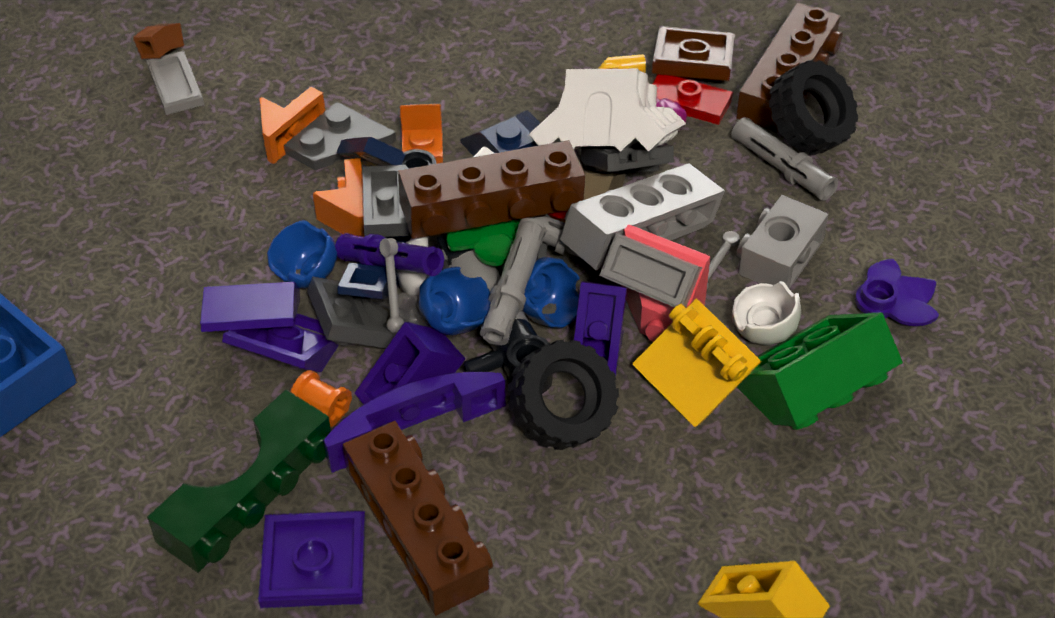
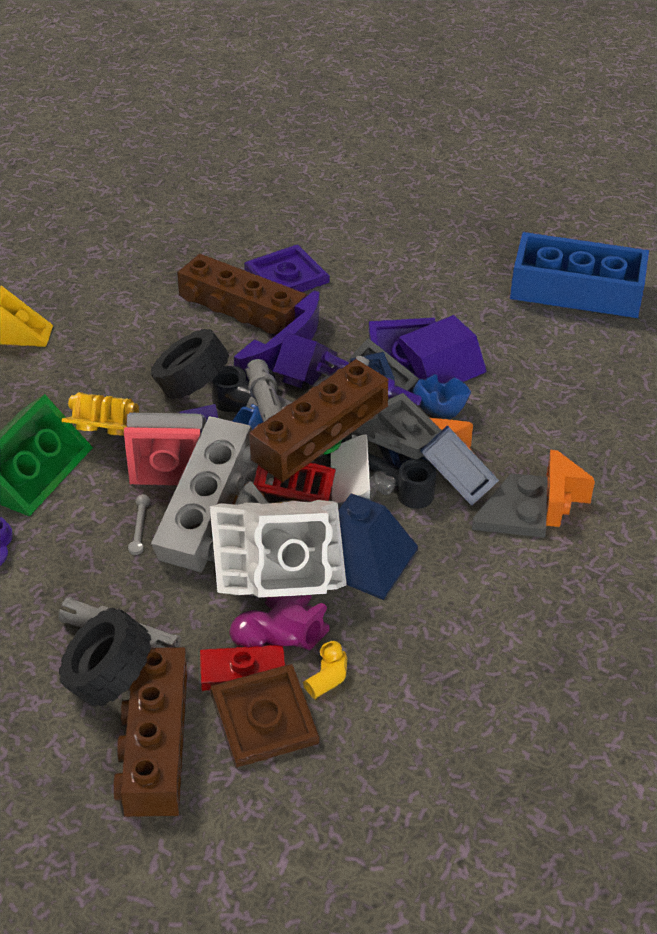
camera: 150 degrees right, 5 degrees down
(202, 521) = (348, 300): dark green arch -> none
(322, 396) = (350, 330): orange bush -> none
(422, 129) = (454, 534): orange slope -> none
(454, 302) = (298, 377): blue hair -> none
(771, 308) = (72, 470): white hair -> none
(782, 242) = (86, 538): light grey brick -> none

